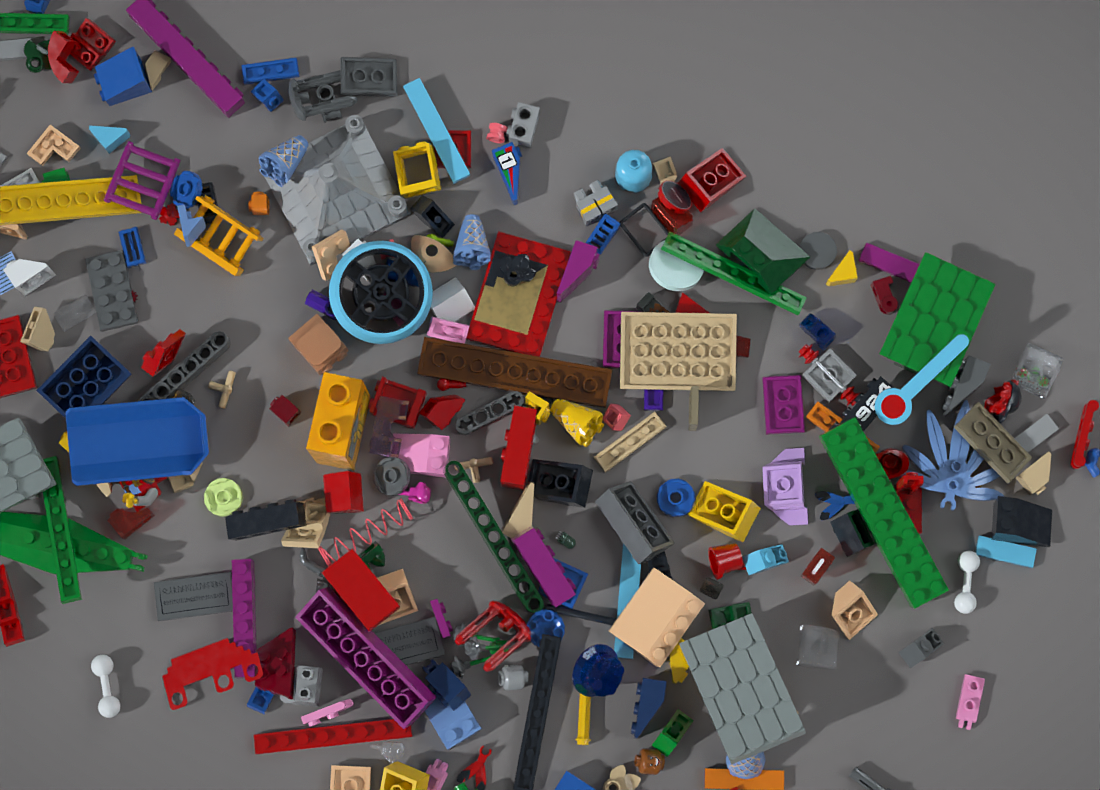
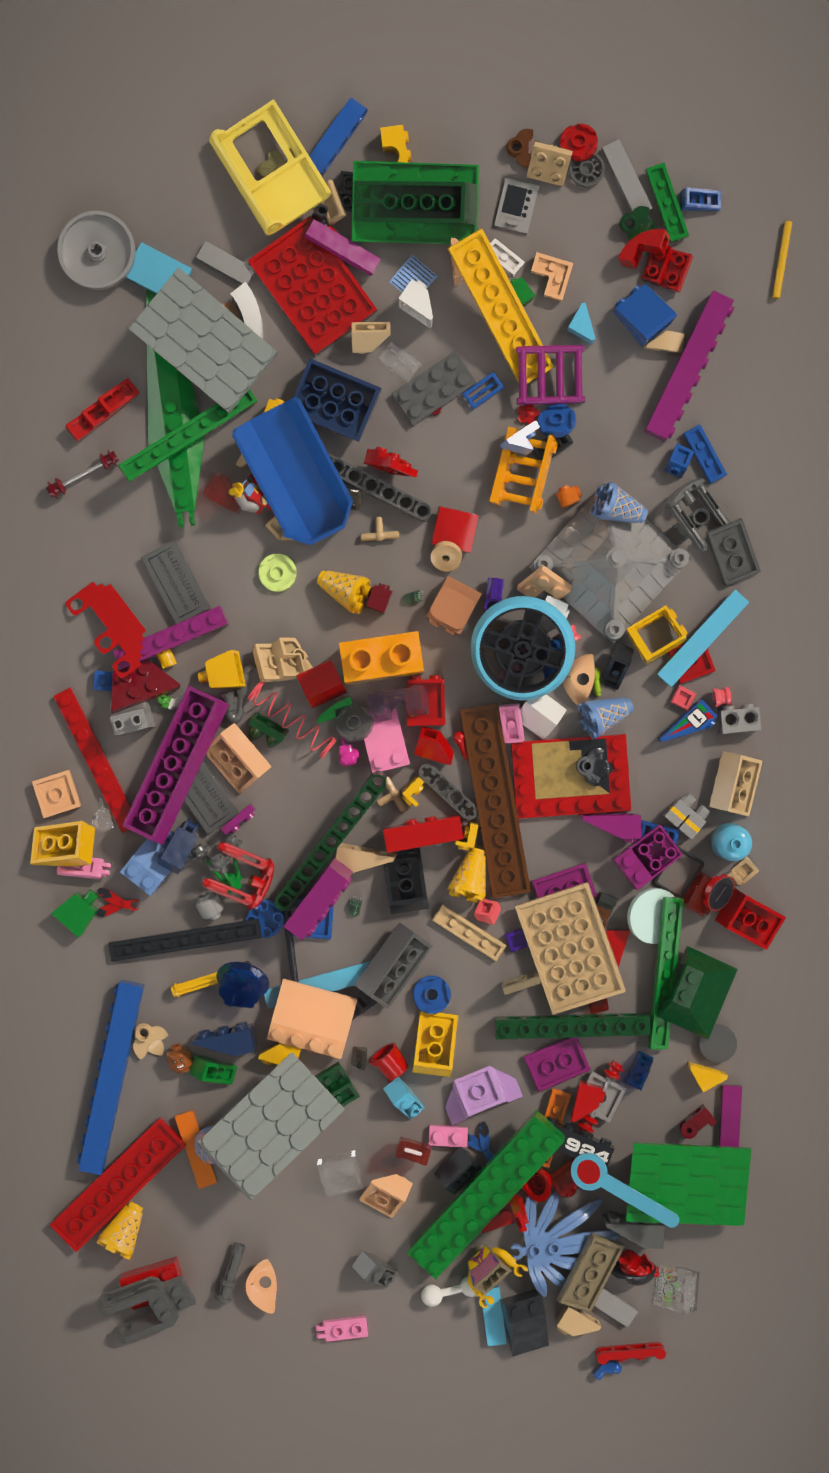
camera: 70 degrees right, 10 degrees up
(59, 673) = (59, 486): none -> dark red axle
(109, 705) = (79, 524): white piece -> none
(248, 318) = (455, 527): none -> red slope
(262, 631) = (166, 659): none -> yellow hose
(263, 437) = (346, 589): none -> yellow cone
(265, 520) = (267, 623): black brick -> none
(278, 334) = (443, 563): none -> tan piece
(295, 580) = (223, 671): none -> yellow torso
(296, 379) = (413, 597): none -> clear green piece
(306, 644) = (168, 702): none -> arm
(329, 712) = (116, 749): bright pink hinge -> none
(360, 590) = (234, 738): red tile -> none
(374, 494) = (330, 712): none -> green slope
(472, 440) = (413, 786): none -> yellow bracket
(485, 168) = (683, 698): none -> coral tile
(581, 148) = (735, 783): none -> tan slope
(619, 252) = (647, 857): none -> magenta slope
(752, 377) = (572, 1025): none -> dark green brick
(817, 531) = (448, 1136): none -> bright pink plate
(826, 387) = (586, 1100): none -> red slope
(898, 435) = (563, 1180): none -> red bracket
(911, 768) = (262, 1297): none -> light nougat piece
(956, 536) = (488, 1269): none -> torso

